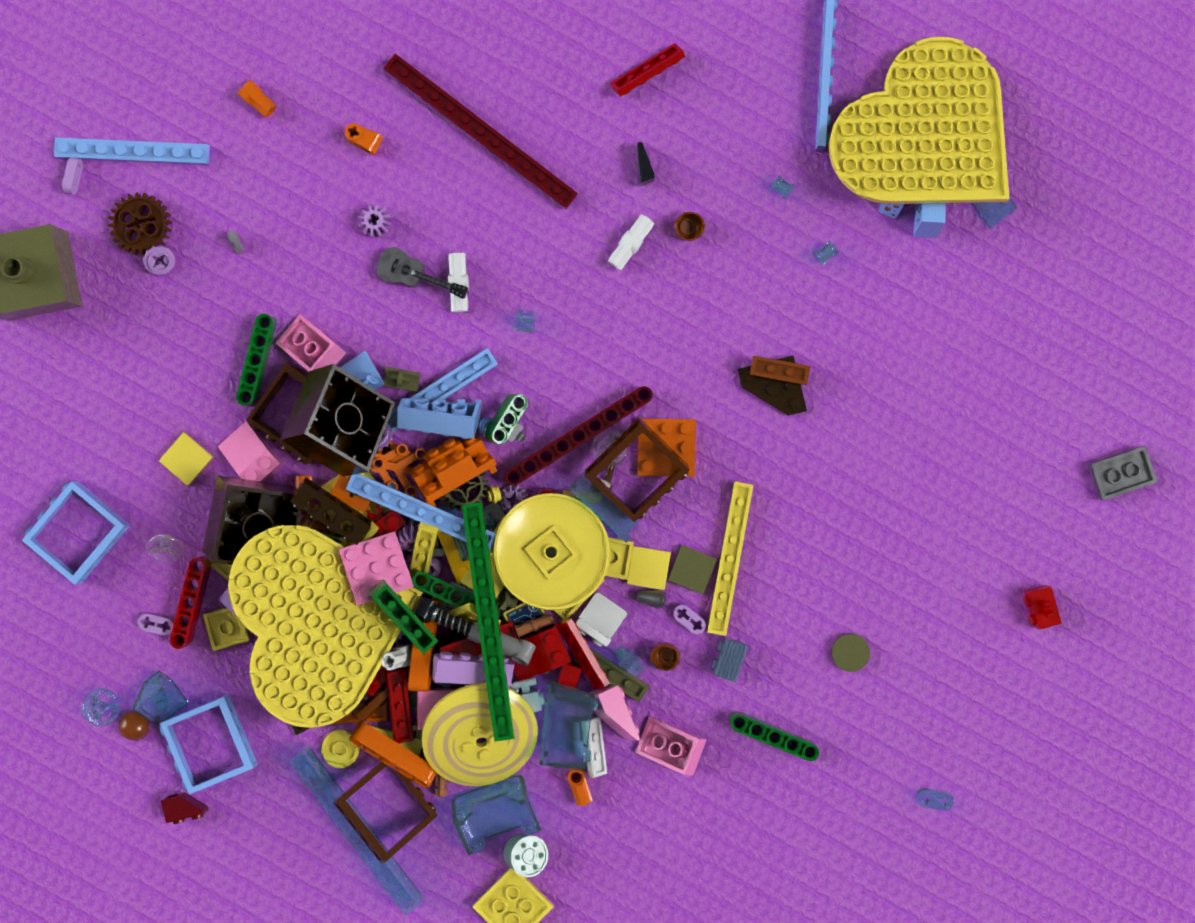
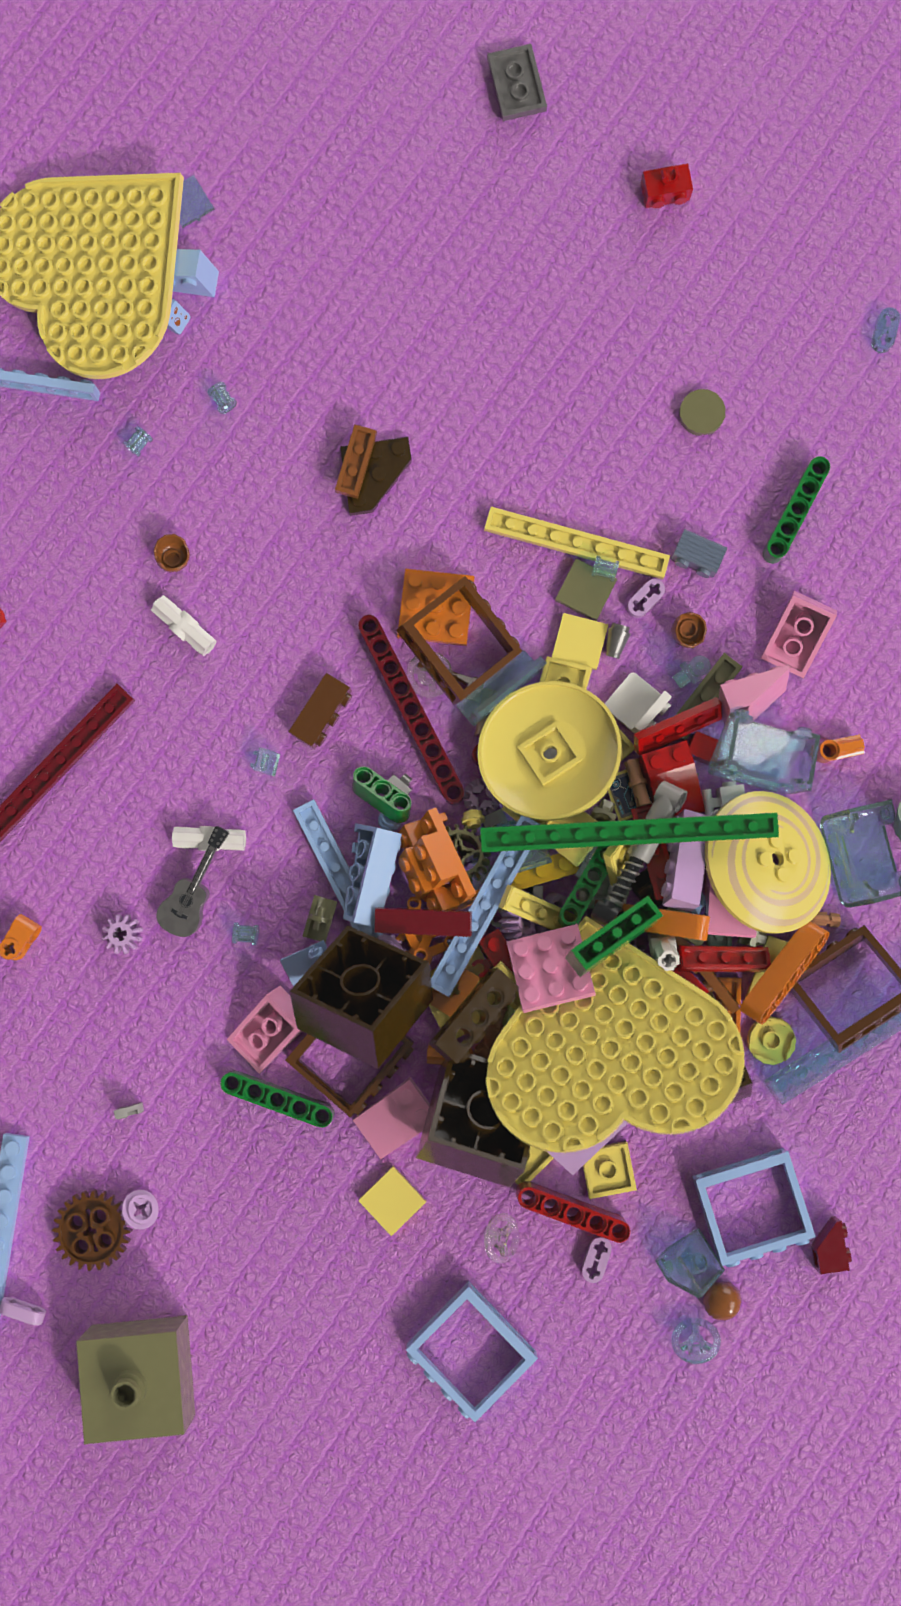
camera: 75 degrees left, 5 degrees down
(384, 320) = (245, 934): none -> clear light blue bush
(403, 463) = (423, 922): none -> dark red tile
(570, 362) = (321, 711): none -> reddish brown brick
(597, 764) = (817, 723): white tile -> none
(646, 172) = (96, 600): black slope -> none
(709, 583) = (605, 568): none -> clear light blue bush

